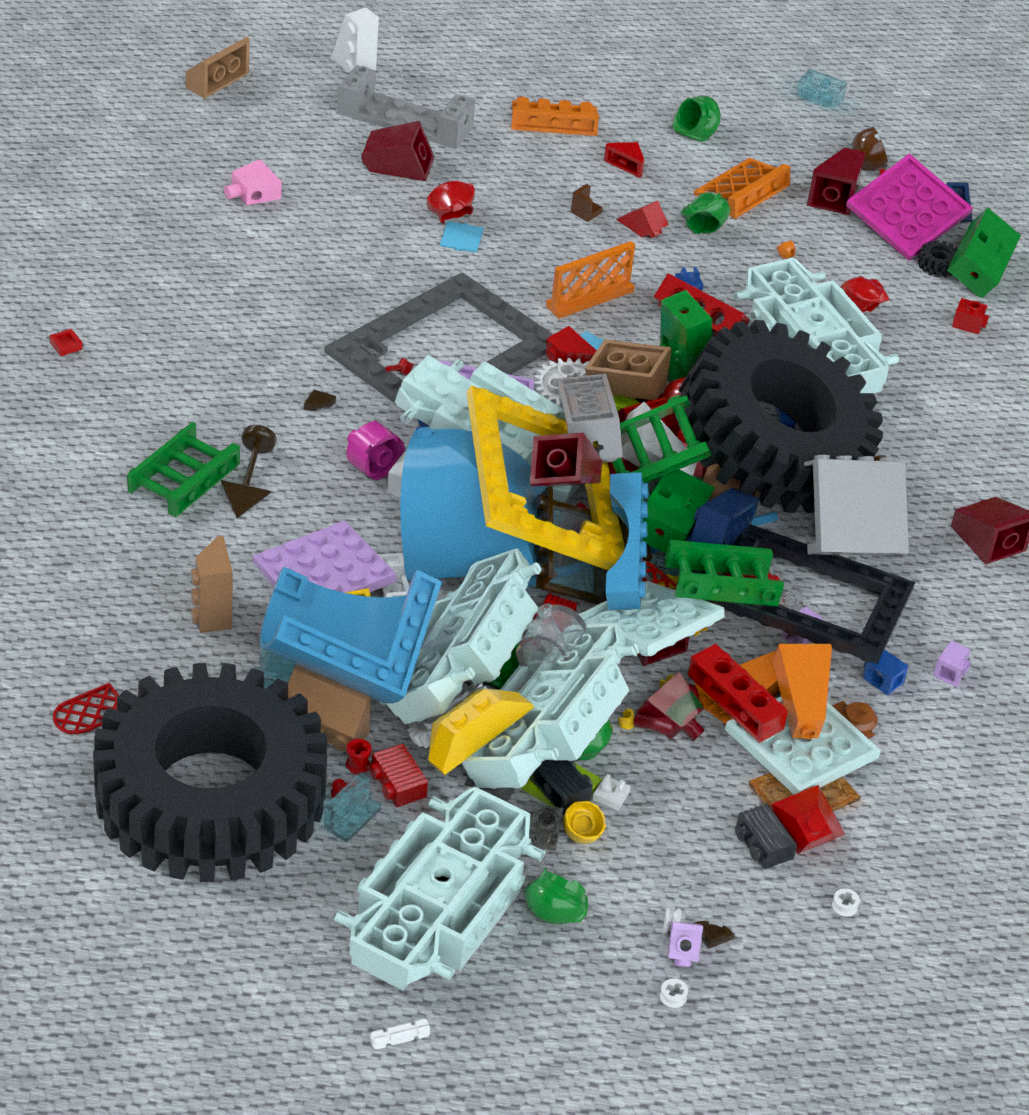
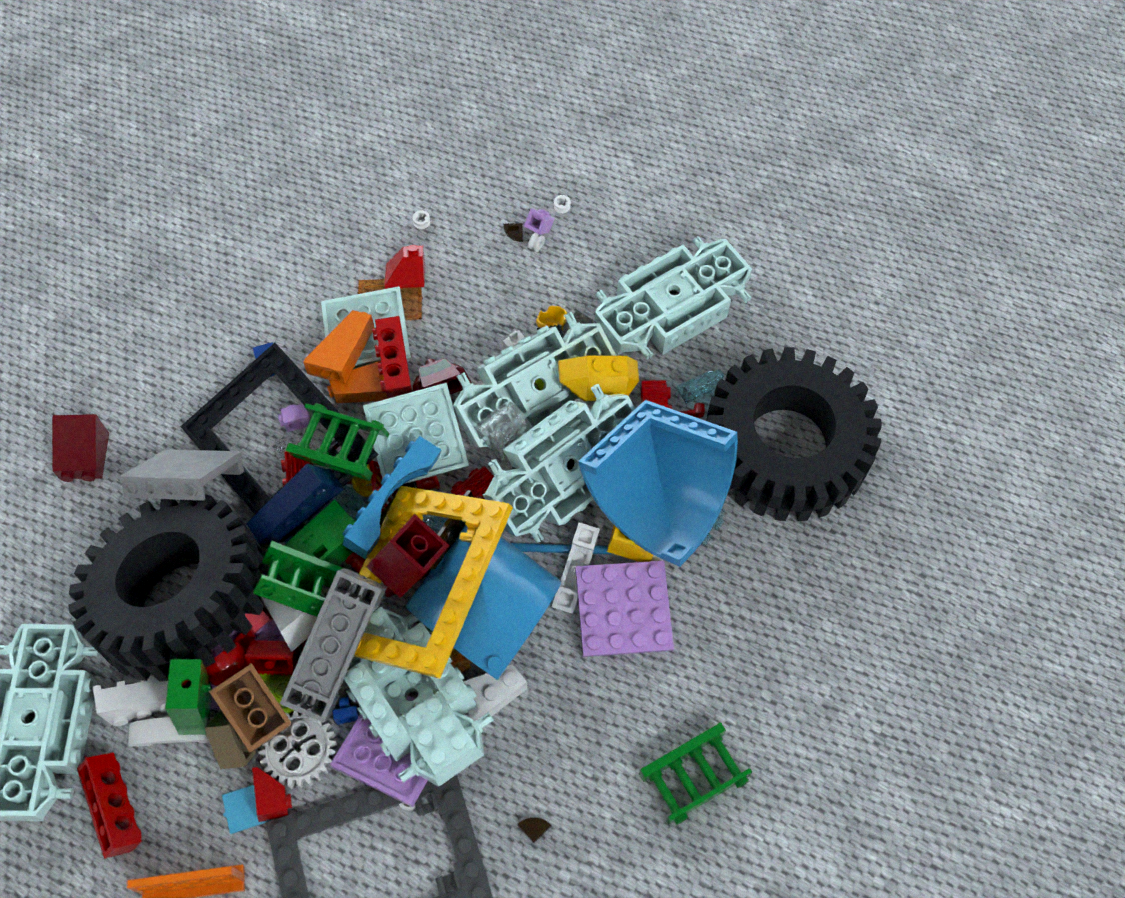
camera: 150 degrees left, 20 degrees up
(75, 700) = (856, 544): red window -> none
(212, 588) = (731, 593): medium nougat slope -> none
(243, 497) = (652, 728): dark brown piece -> none
(374, 449) = (522, 720): dark pink brick -> none
(399, 1034) = (735, 237): white axle -> none
(403, 366) = (436, 843): red hand -> none
(556, 899) = (600, 273): green helmet -> none
(691, 278) = (83, 867): blue tile -> none
(765, 836) = (440, 272): black brick -> none
(859, 715) = (311, 337): dark orange piece -> none
(953, 663) = (213, 349): lavender brick -> none

